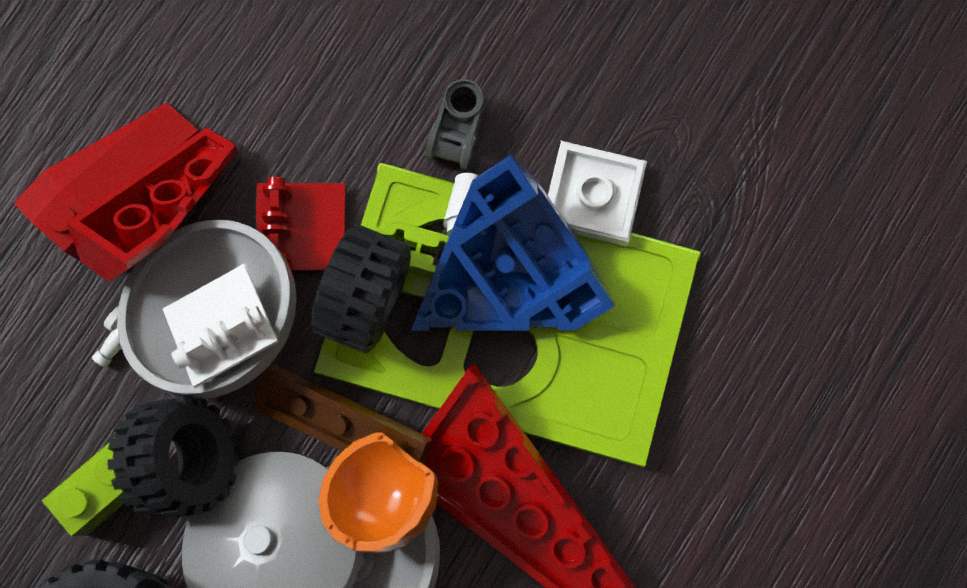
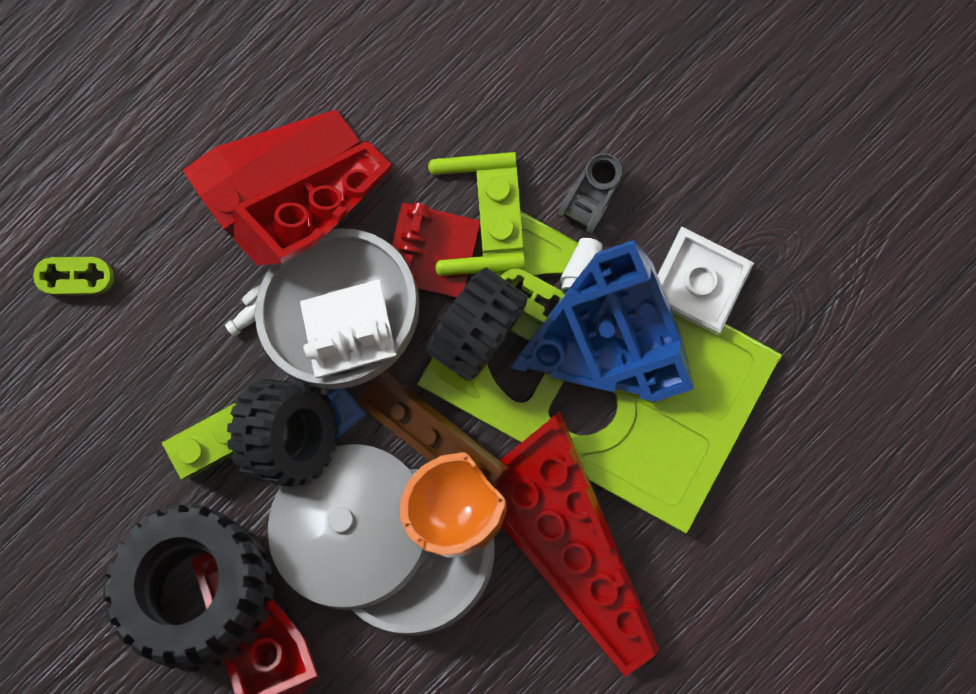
camera: 10 degrees right, 5 degrees up
(244, 420) = (346, 409): none -> blue tile
(361, 168) = (498, 212): none -> lime plate

